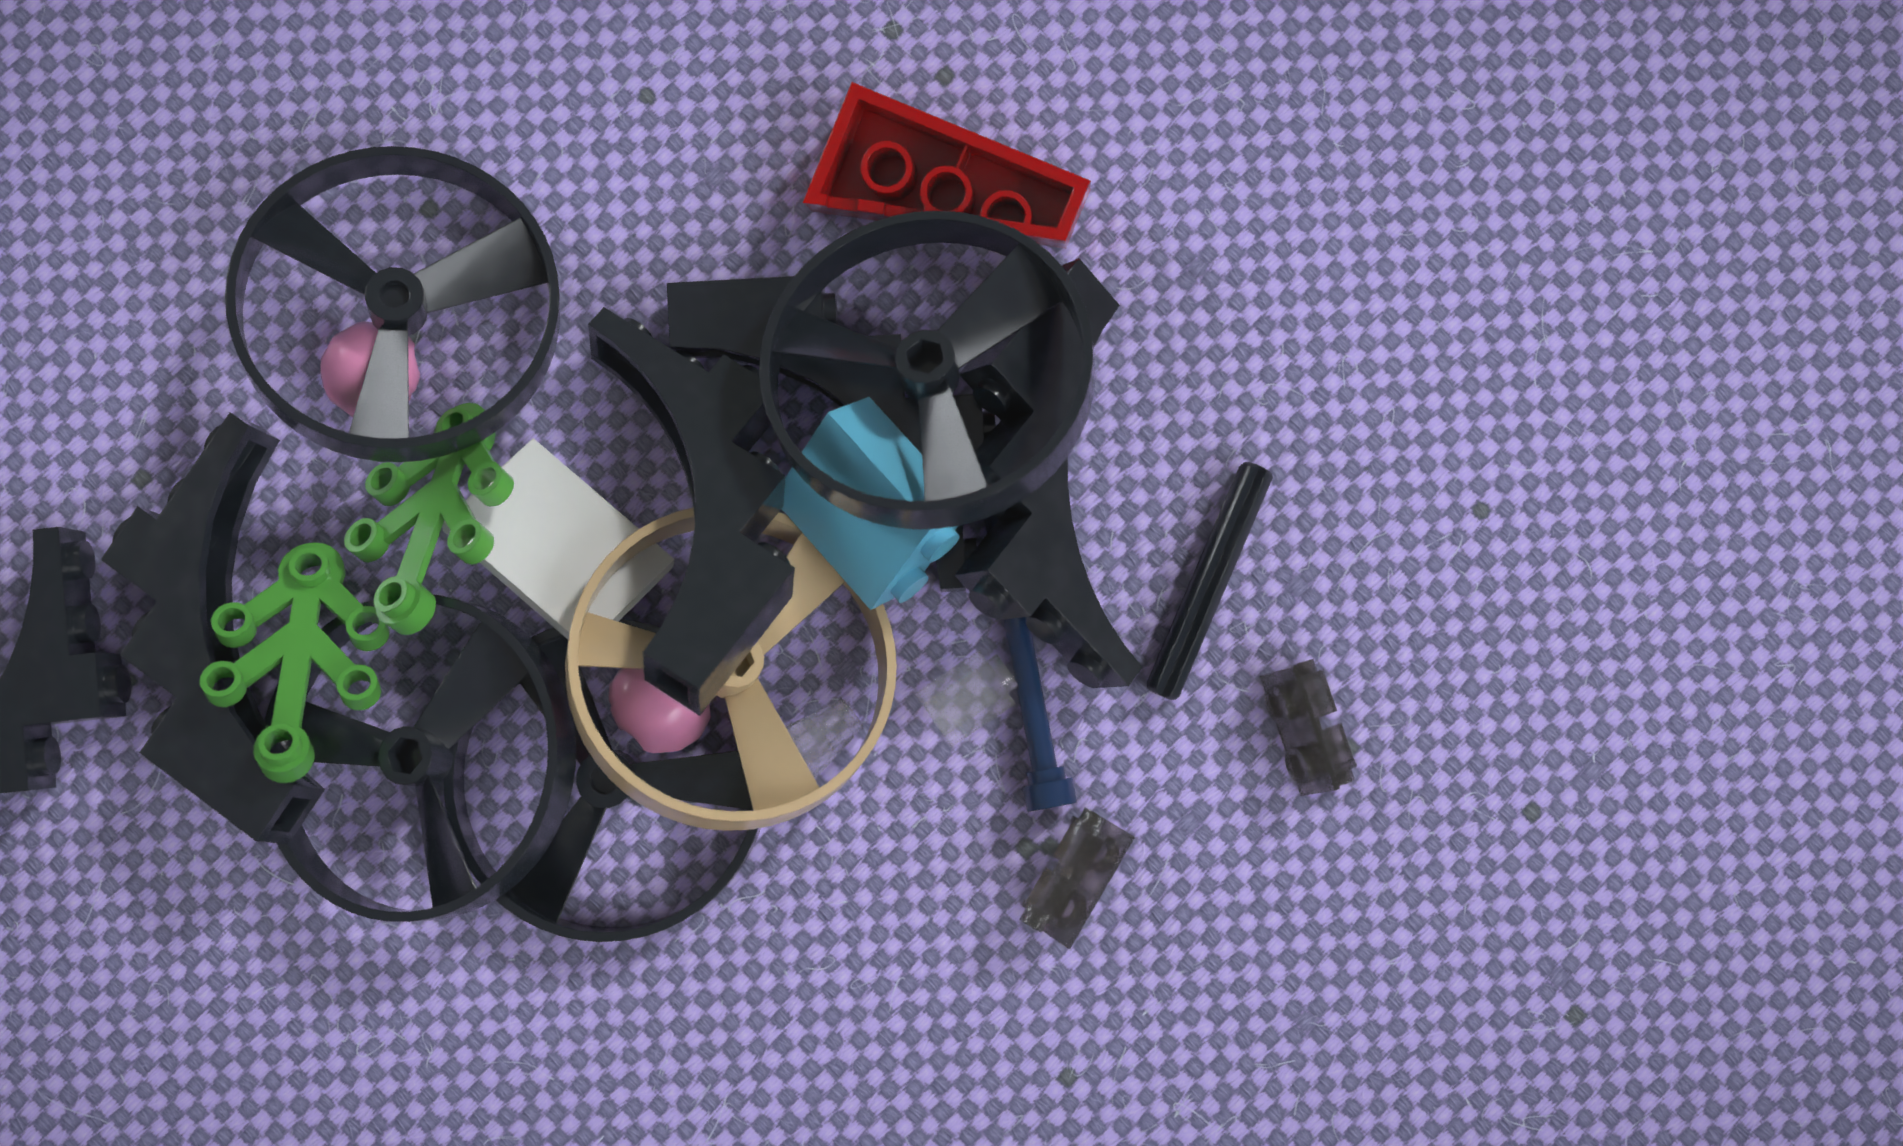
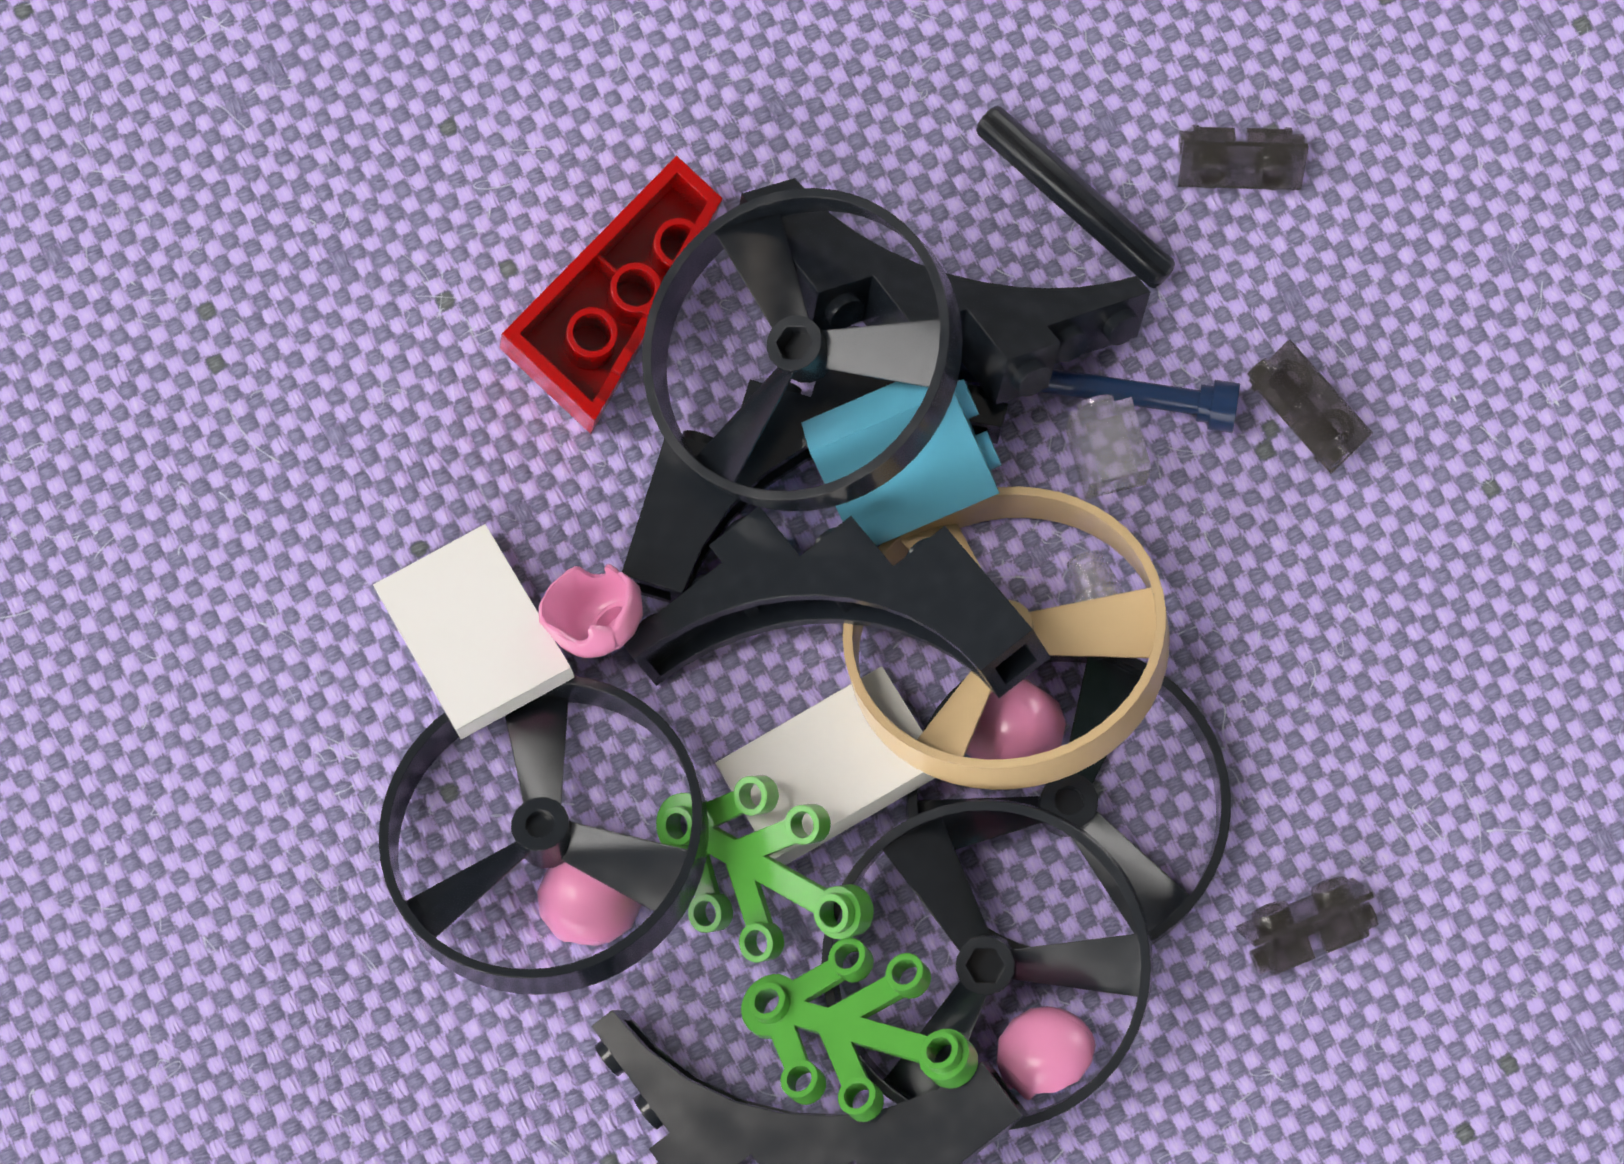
camera: 75 degrees left, 10 degrees down
(354, 839) = (1044, 1051): none -> bright pink hair
(571, 170) = (473, 631): none -> white tile
(595, 1060) = (1284, 928): none -> clear smoke hinge
(617, 267) = (591, 611): none -> bright pink hair

